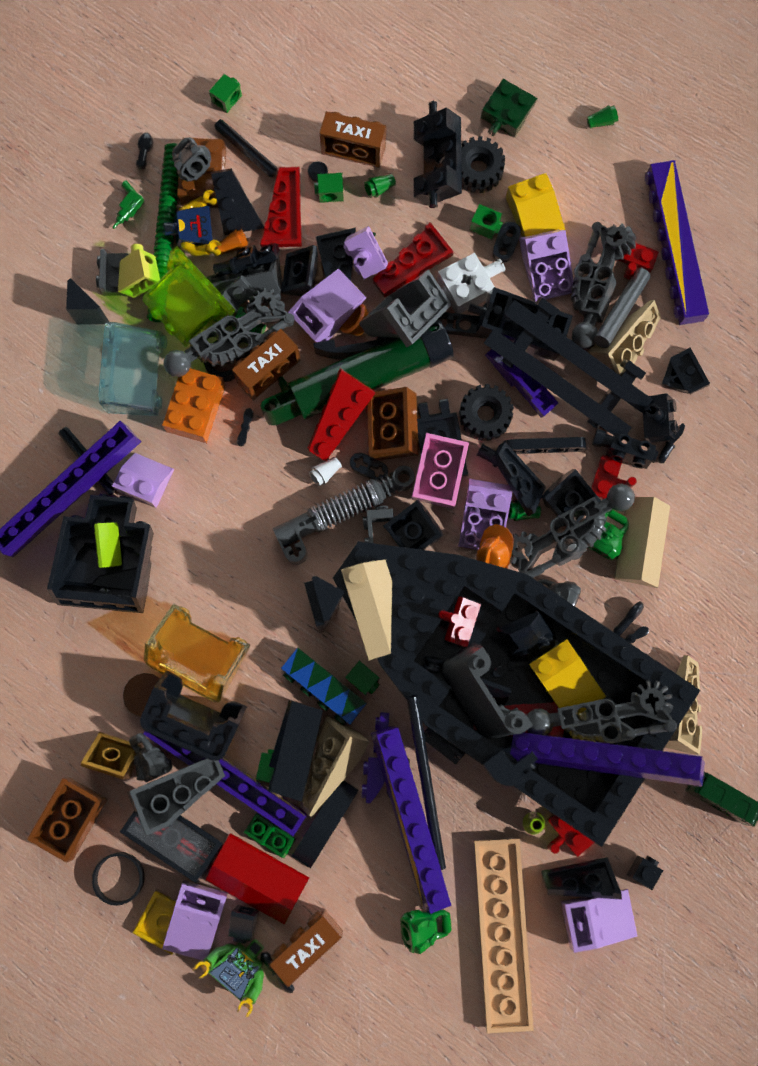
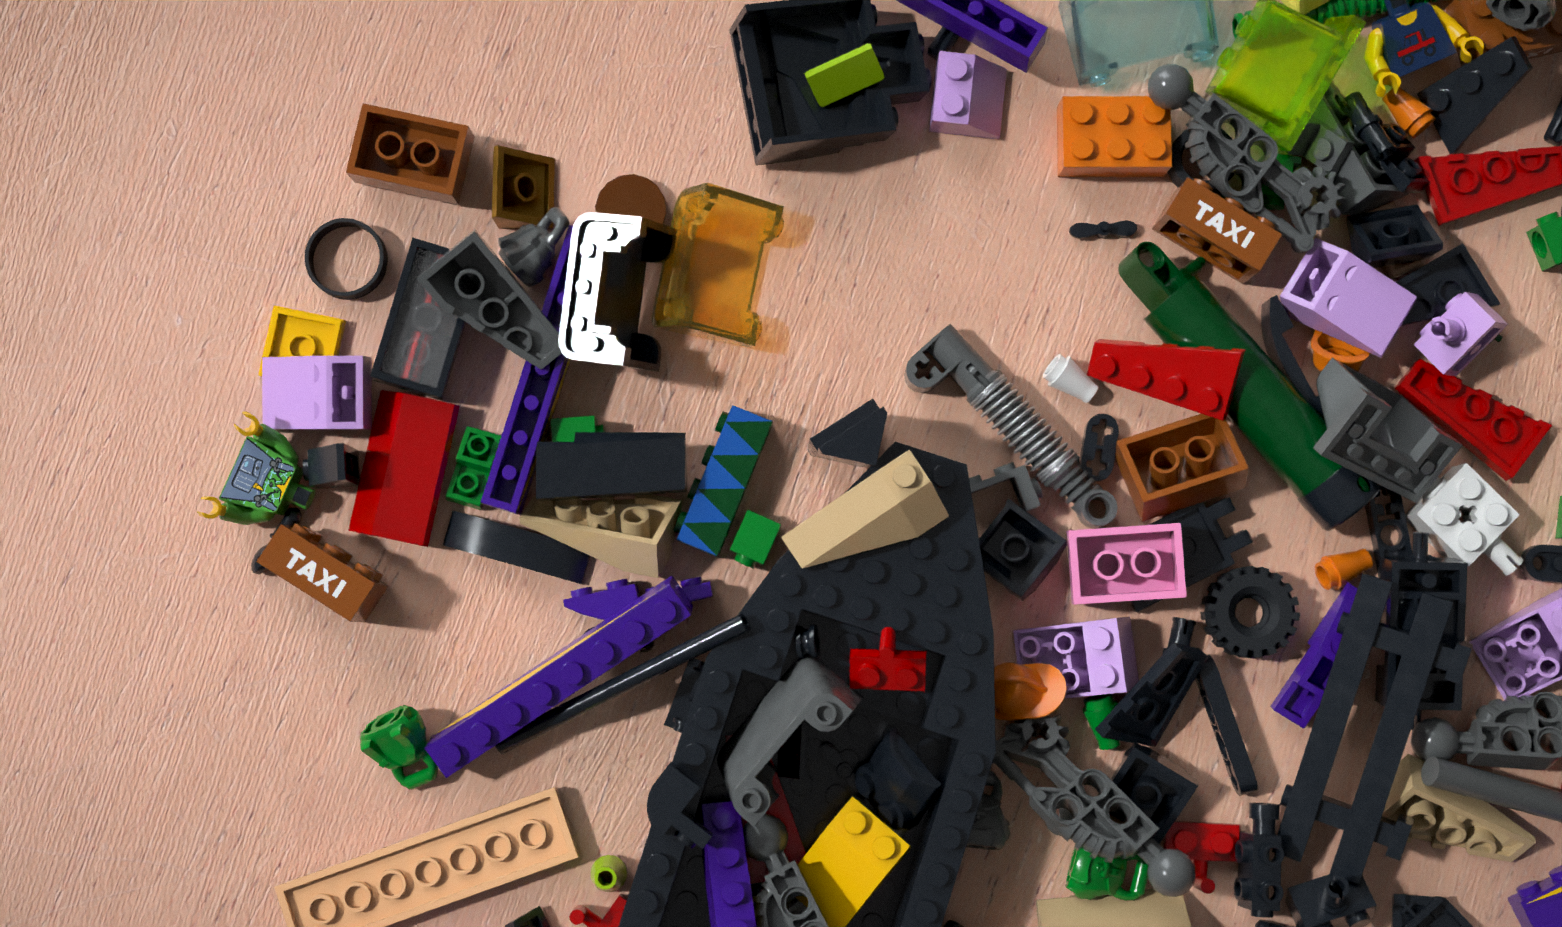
camera: 70 degrees right, 5 degrees up
(475, 357) = (1338, 569): none -> orange cone

